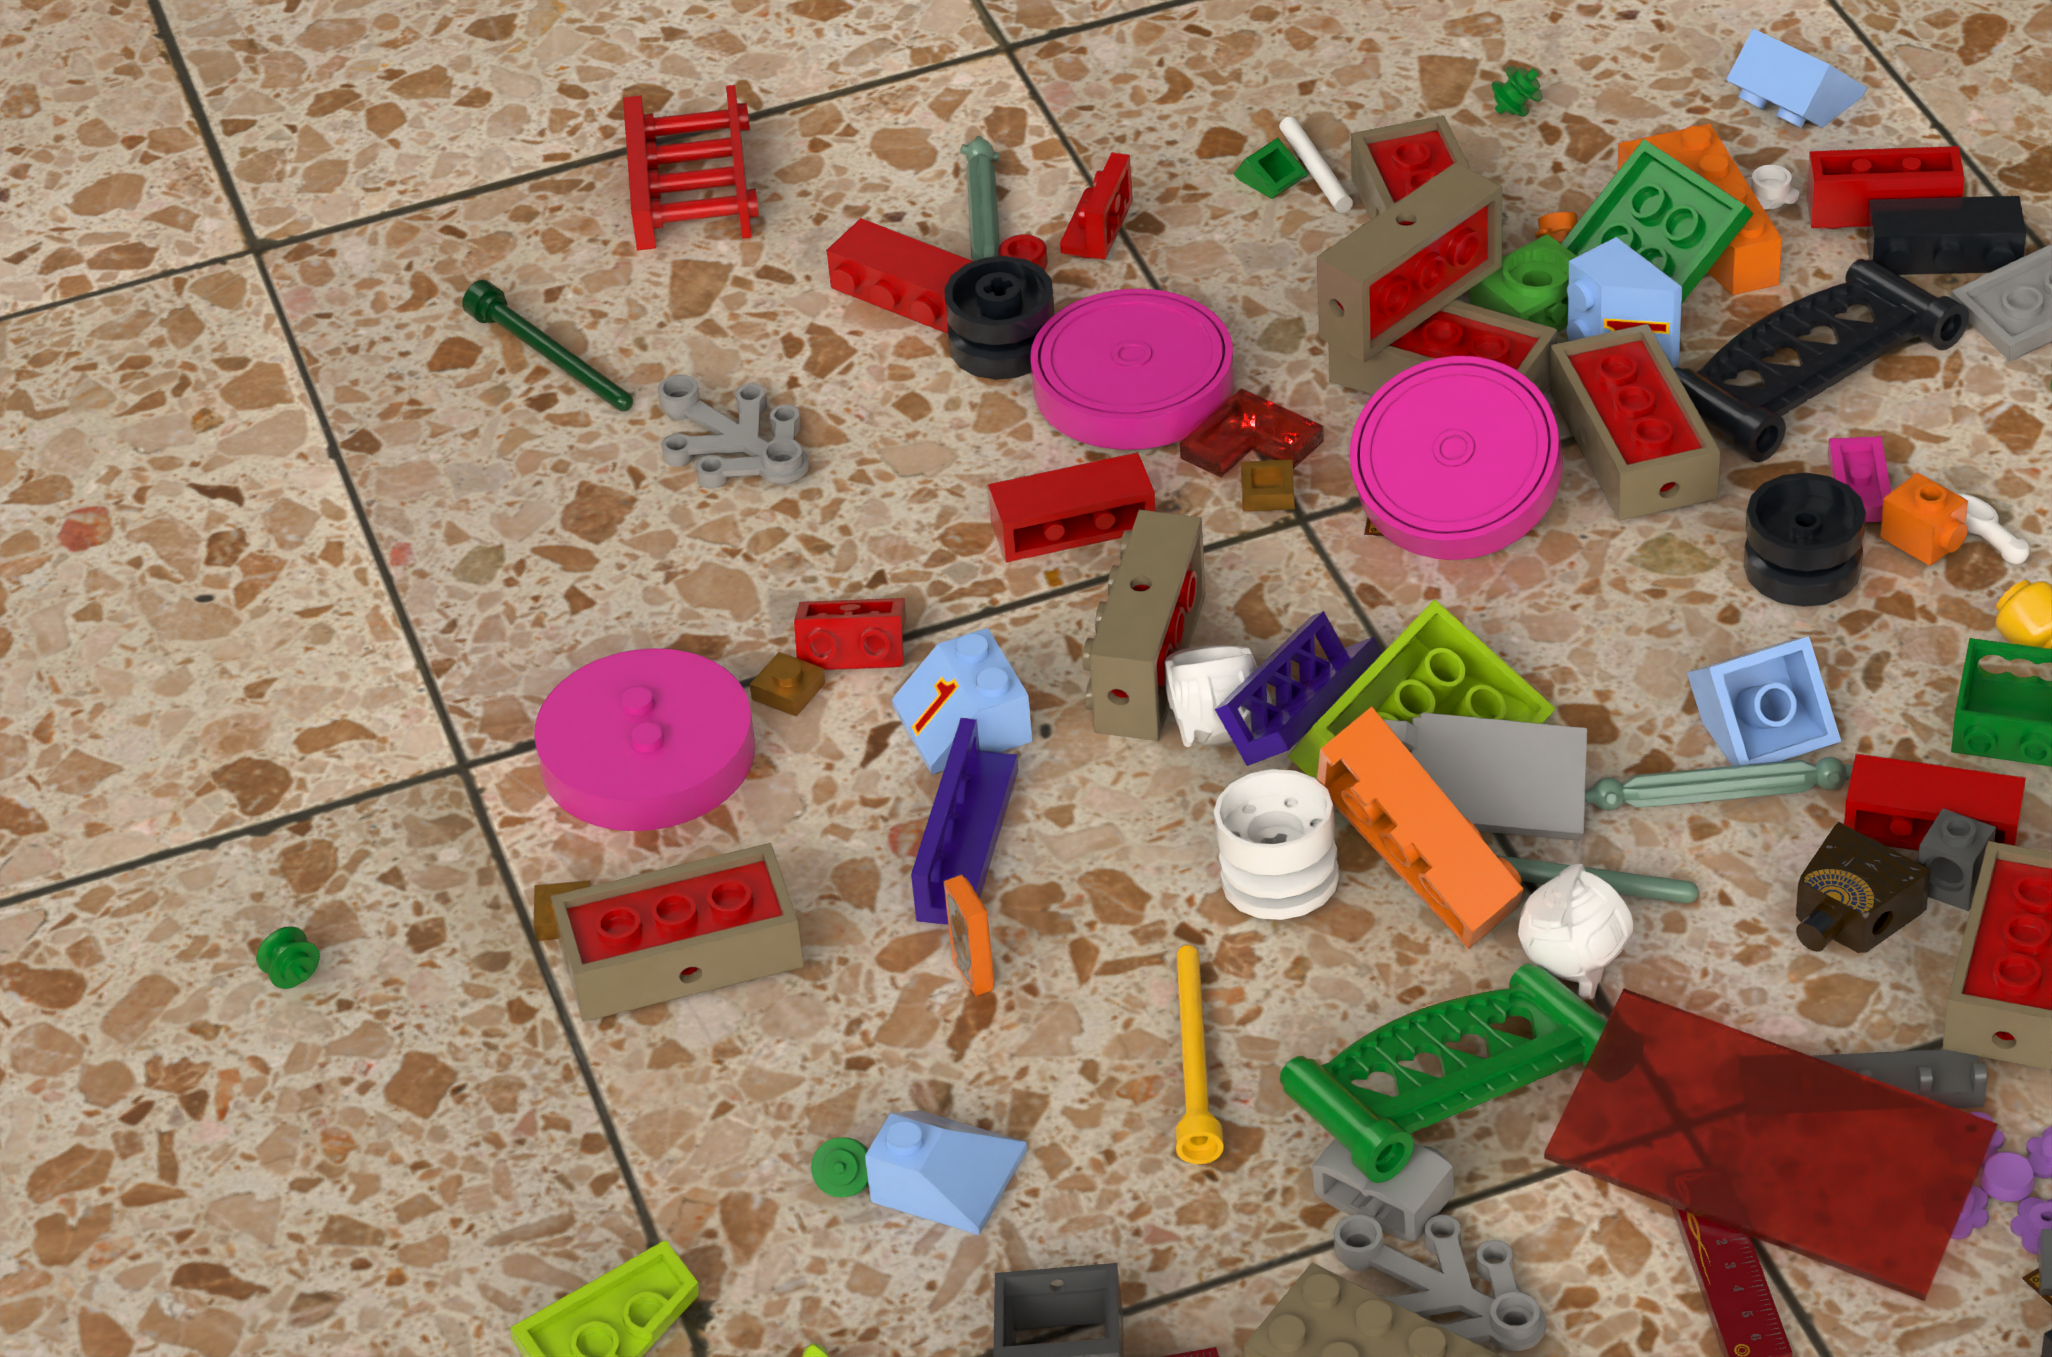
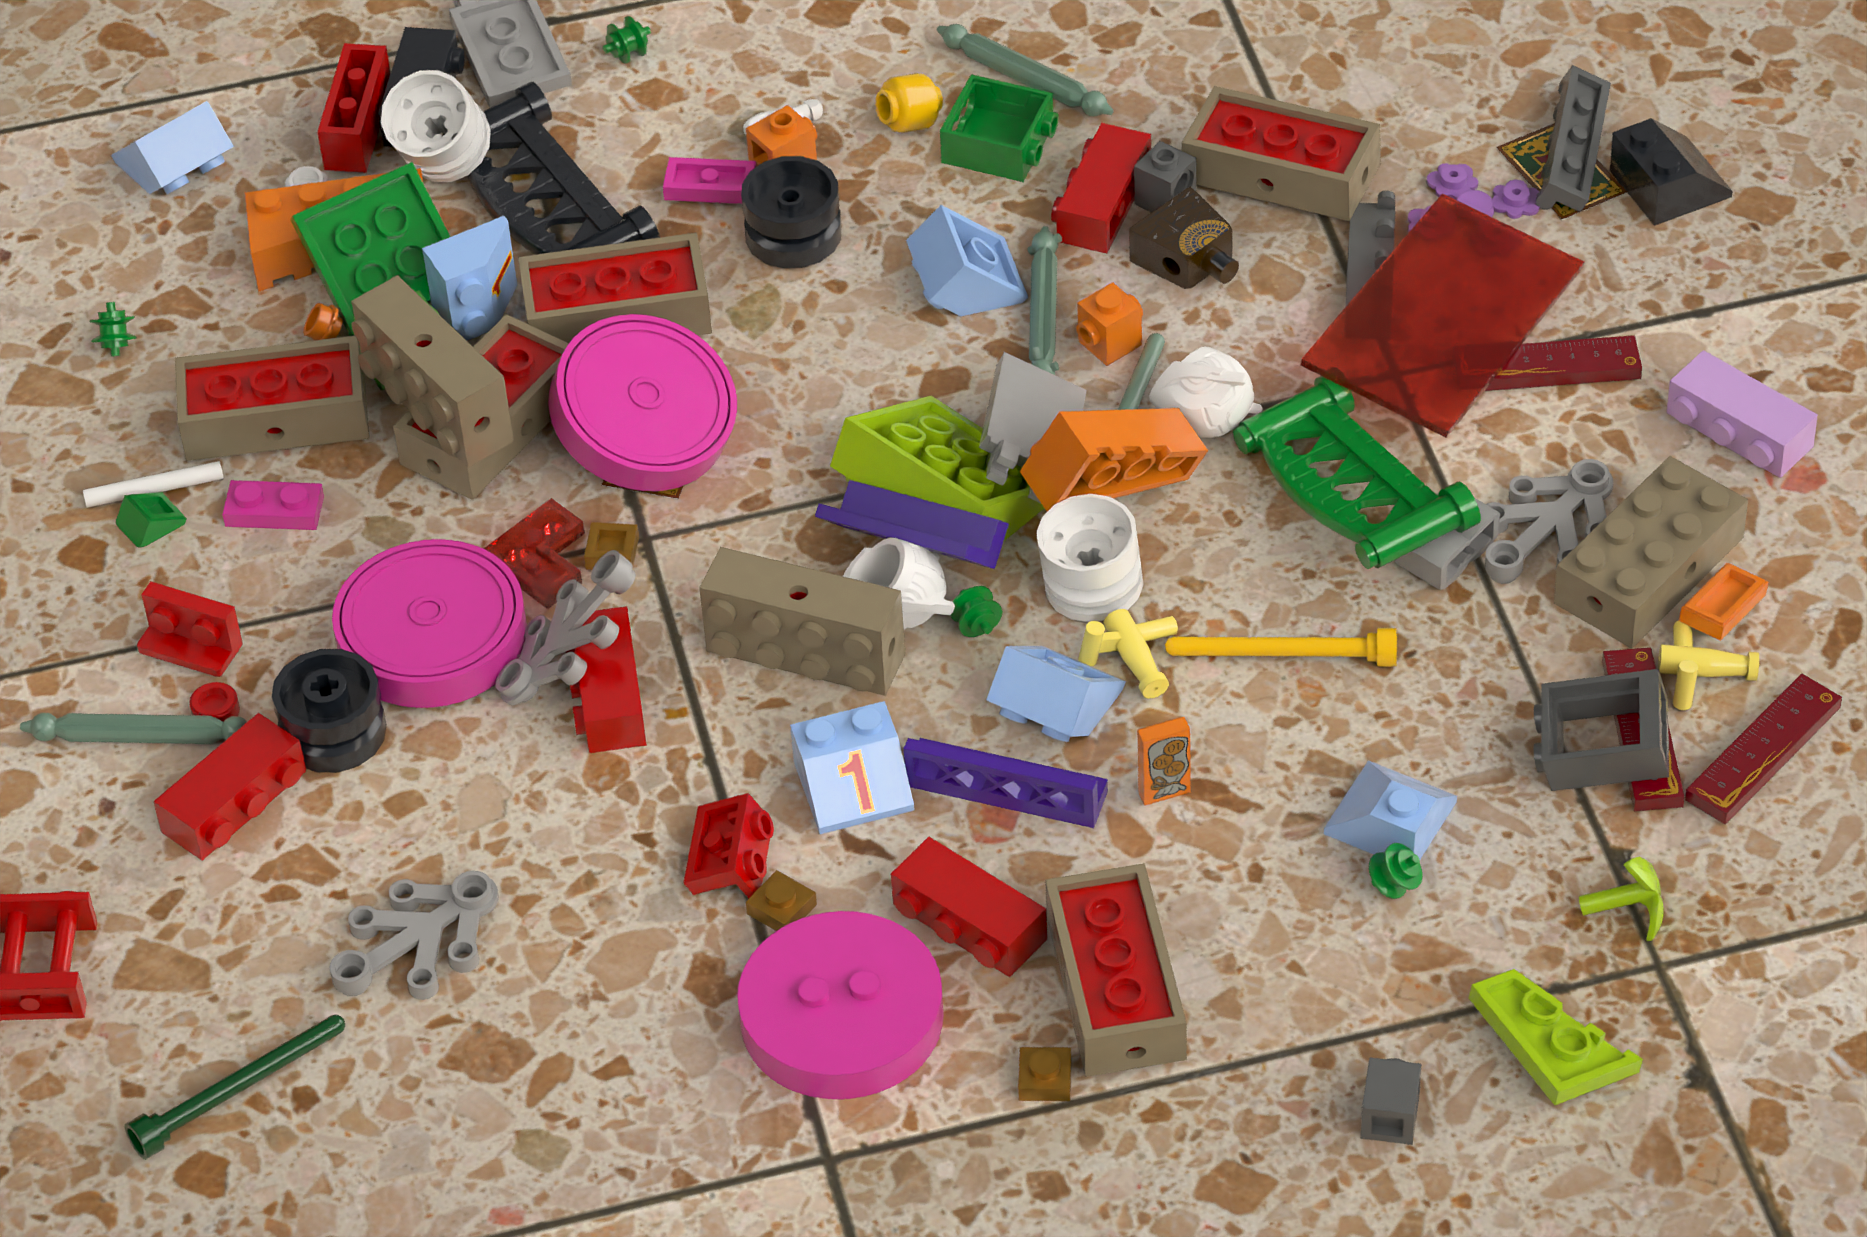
camera: 85 degrees left, 5 degrees up
(511, 1187) = (1390, 1100): none -> dark grey brick
(781, 804) = (969, 907): none -> red brick
(1070, 450) = (565, 632): none -> light grey plant
(1096, 851) = (1052, 691): none -> light blue slope
(1176, 911) = (1131, 644): none -> light yellow piece
(1205, 774) = (976, 611): none -> green wheel
(1297, 245) = (273, 505): none -> dark pink plate
(1687, 833) = (1110, 323): none -> orange brick
(1831, 227) = (422, 109): none -> white wheel

